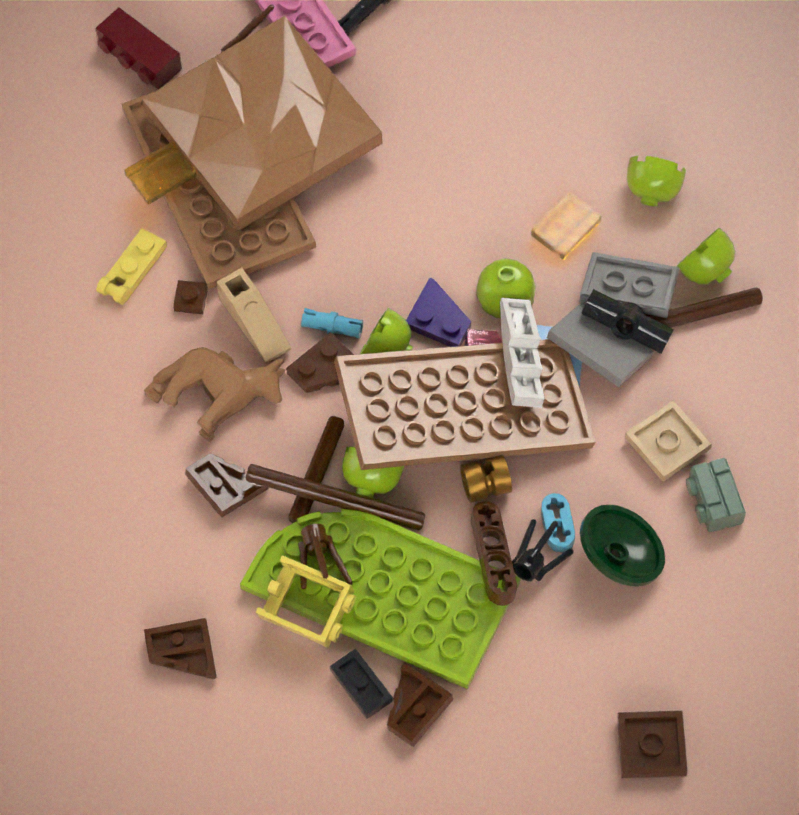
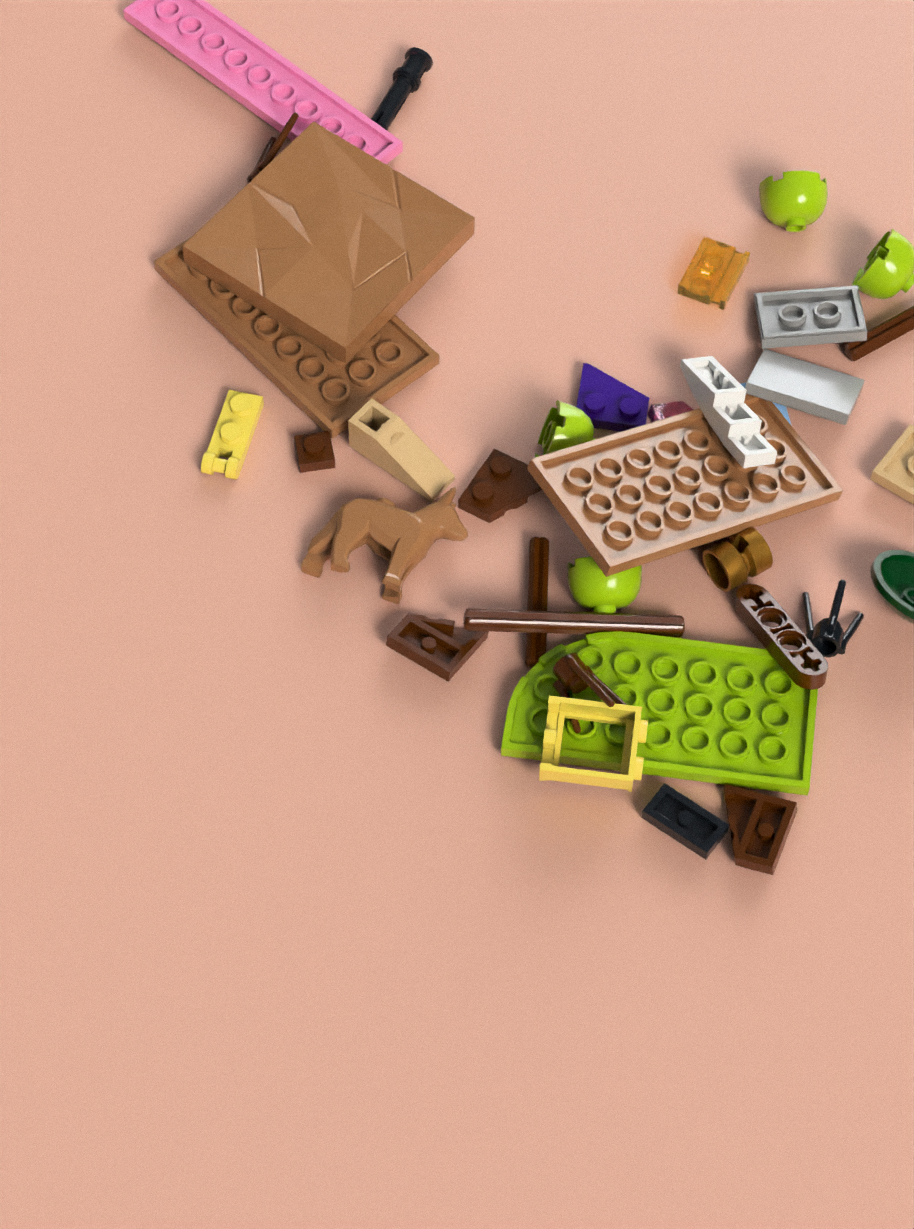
camera: 20 degrees left, 5 degrees down
(138, 48) = (150, 198): dark red brick -> none
(160, 172) = (232, 322): clear yellow plate -> none
(182, 647) = (460, 838): reddish brown wing -> none
(332, 323) = (491, 438): medium azure pin -> none
(504, 280) = (665, 347): lime cylinder -> none
(564, 521) = (826, 588): medium azure beam -> none
(611, 314) = (848, 358): black piece -> none

